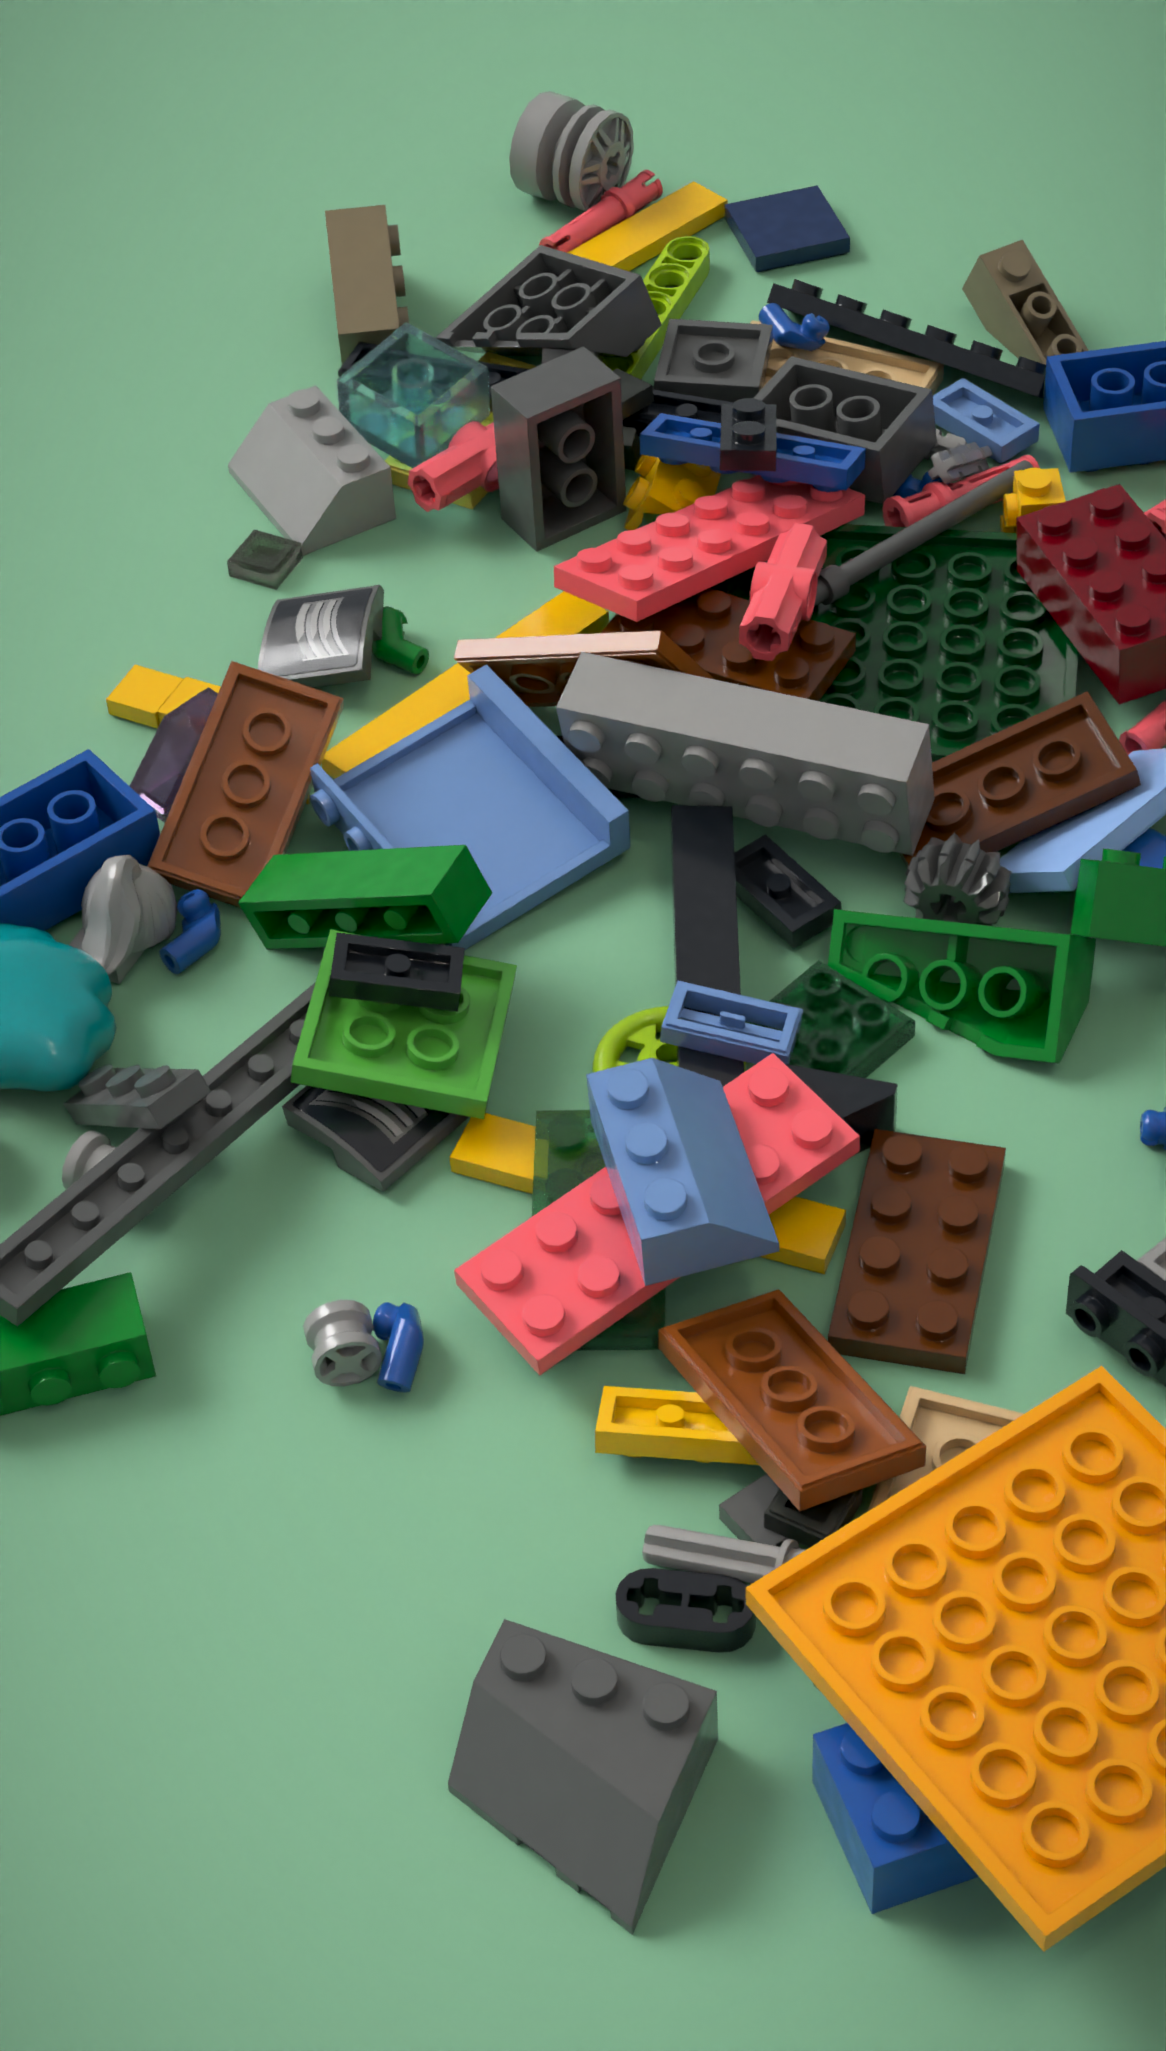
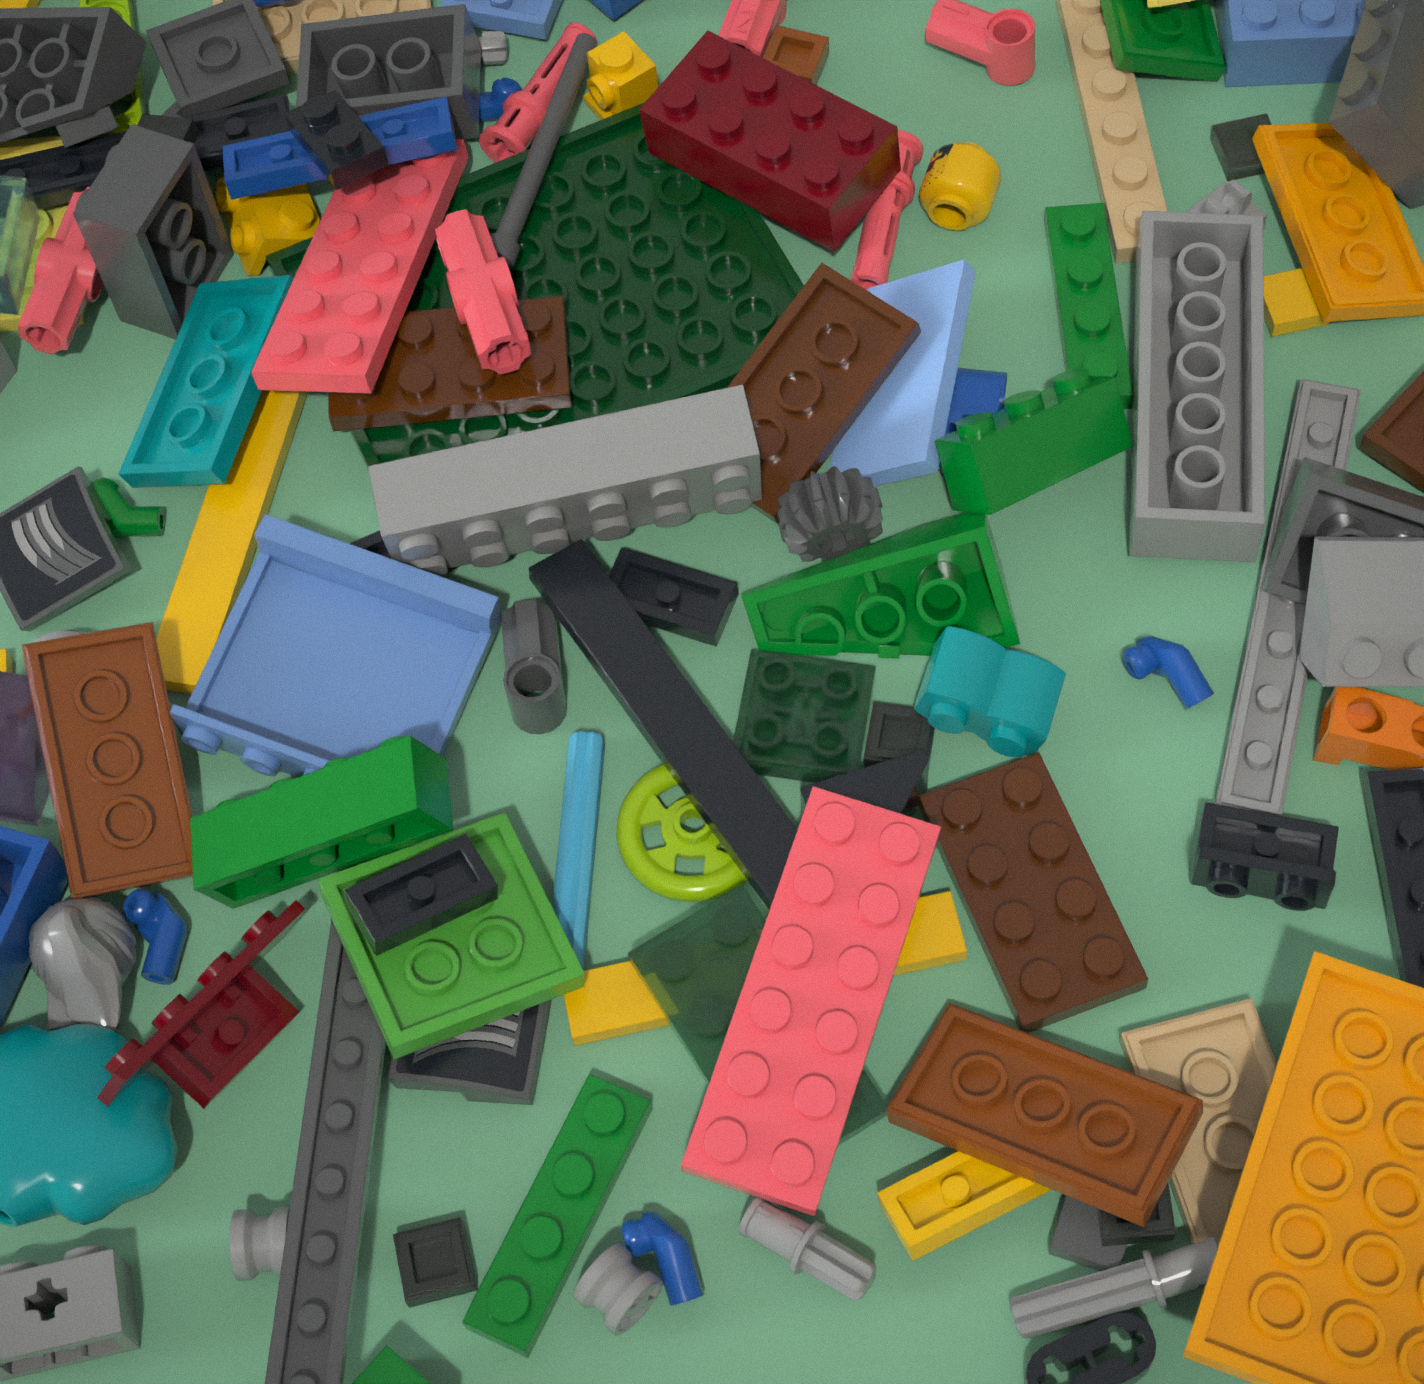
camera: 30 degrees left, 15 degrees up
(135, 1096) = (256, 1157): dark grey plate -> none
(182, 998) = (221, 1028): none -> dark red bracket
(221, 1258) = (434, 1262): none -> pearl dark grey tile
(349, 1268) = (557, 1216): none -> green plate
(517, 585) = (206, 386): none -> teal plate
(517, 1397) = (808, 1248): none -> light grey axle
(541, 665) = (348, 471): dark orange tile -> none
(564, 1030) = (578, 837): none -> medium azure axle
(625, 888) = (532, 666): none -> dark grey piece
(677, 1169) = (826, 962): medium blue slope -> none
(729, 1033) = (748, 792): medium blue tile -> none
(915, 1082) = (896, 732): none -> pearl dark grey tile
(959, 462) = (519, 61): light grey axle -> none
(994, 1078) = (989, 692): none -> teal brick

